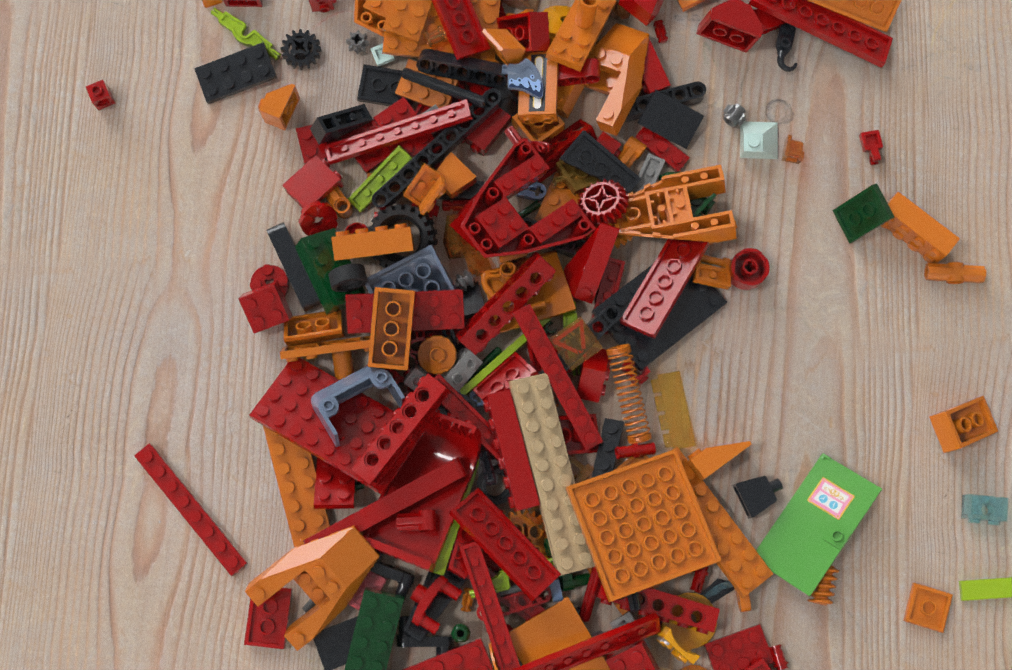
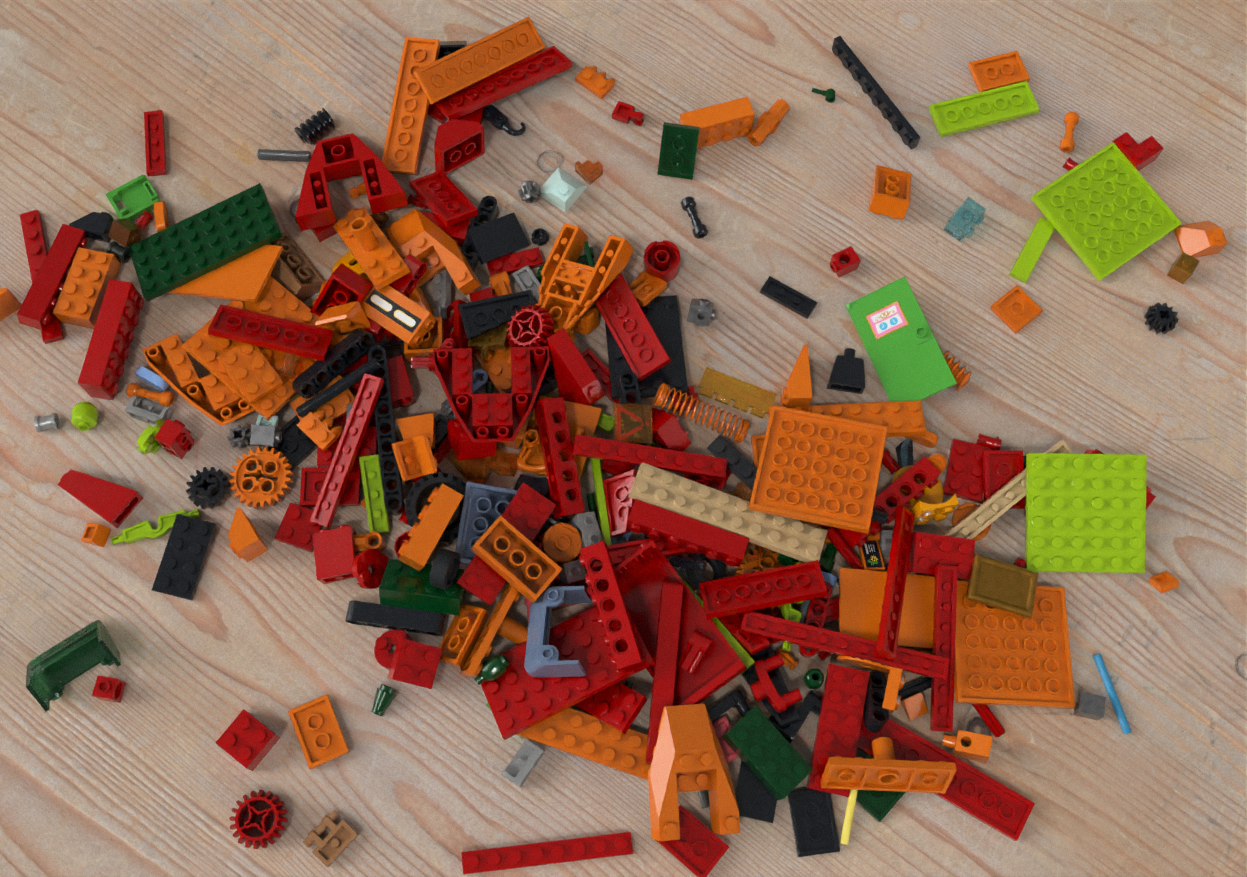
camera: 55 degrees left, 10 degrees down
(81, 260) = (250, 824): none -> red gear
(96, 343) = (335, 843): none -> medium nougat plate
(100, 48) = (69, 659): none -> clear green windscreen
(128, 224) = (247, 740): none -> red brick
(169, 271) = (318, 732): none -> orange plate
(225, 302) = (383, 698): none -> dark green cone
(245, 444) = (523, 763): none -> light grey hinge
(298, 370) = (493, 669): none -> dark green plant
(320, 90) = (257, 494): none -> orange gear
(339, 123) = (300, 496): black slope -> none
(369, 61) = (265, 436): none -> flat silver brick
(400, 98) = (320, 430): none -> orange plate
(465, 280) = (513, 480): flat silver wheel -> none
(524, 78) = (381, 317): sand blue arm -> none
(586, 110) = (441, 294): none -> light grey hinge
(600, 618) = (871, 556): none -> tile
(635, 450) = (751, 439): red pin -> none
(648, 245) = (587, 322): none -> orange panel
(674, 50) = (443, 198): none -> red plate
(704, 152) = (539, 233): none -> black plate
(724, 333) = (701, 312): none -> flat silver brick
(726, 623) = (938, 461): none -> orange wheel
(794, 399) = (788, 297): none -> black tile
(804, 281) = (688, 204): none -> black piece
(870, 423) = (847, 255): none -> red brick
(885, 97) = (595, 82): none -> orange plate

